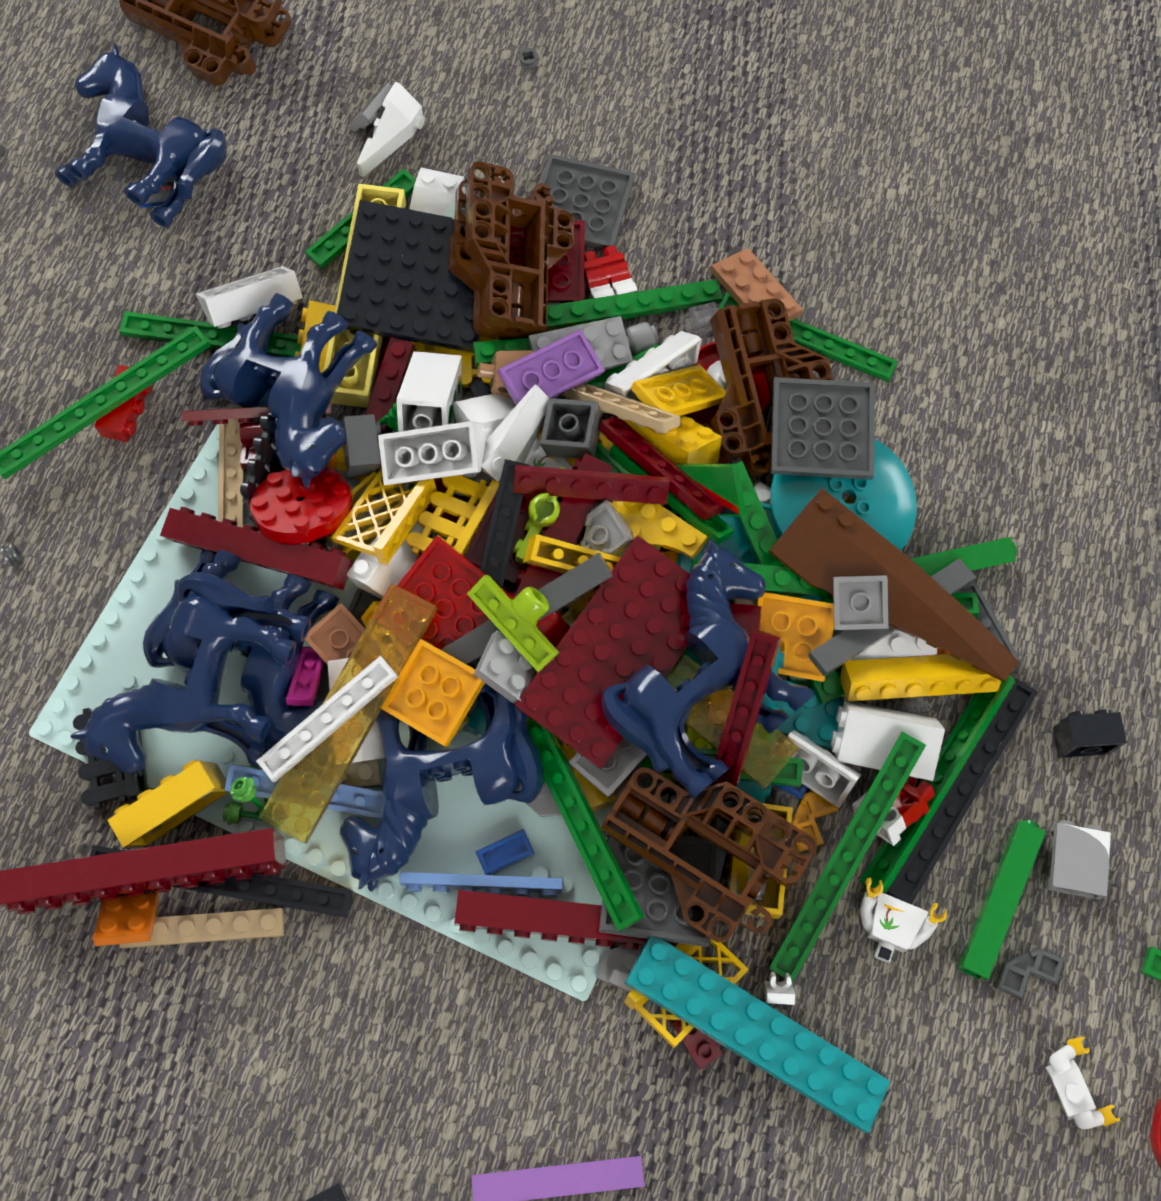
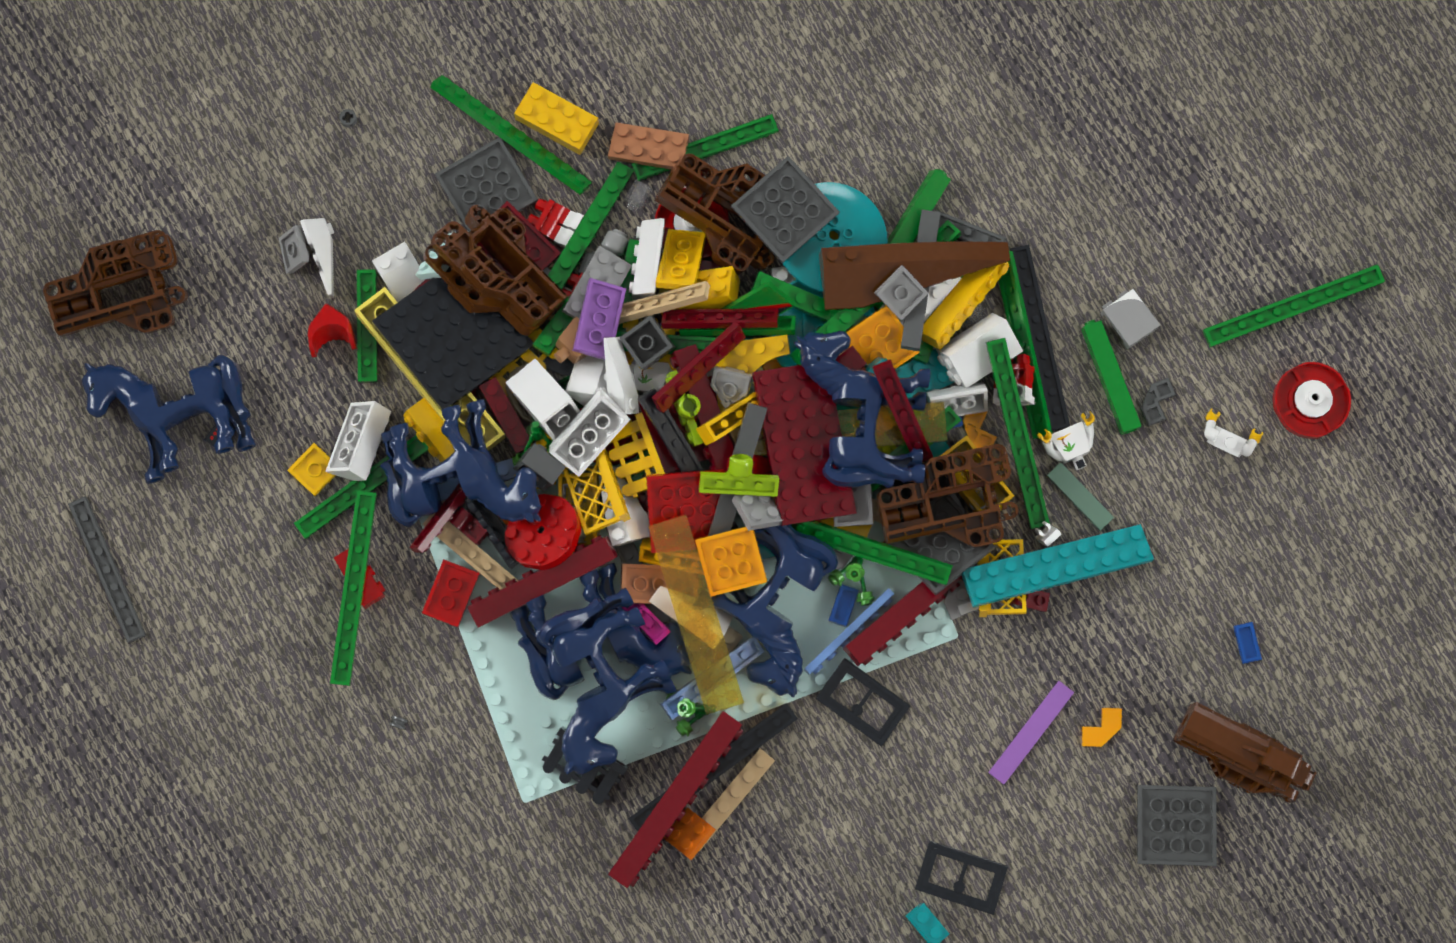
camera: 50 degrees left, 10 degrees up
(168, 804) = (650, 756): yellow piece -> none
(176, 485) = (450, 593): none -> red plate
(185, 285) = (311, 469): none -> yellow tile
(327, 188) = (329, 326): none -> red animal
(327, 719) = (690, 629): white tile -> none
(399, 971) = (852, 716): none -> black door
(541, 826) = (854, 572): none -> bright green plant
(647, 183) = (511, 134): none -> green plate
(699, 200) = (556, 118): none -> yellow brick
(852, 988) = (1080, 496): none -> sand green tile
(1089, 734) = (1076, 245): black brick -> none

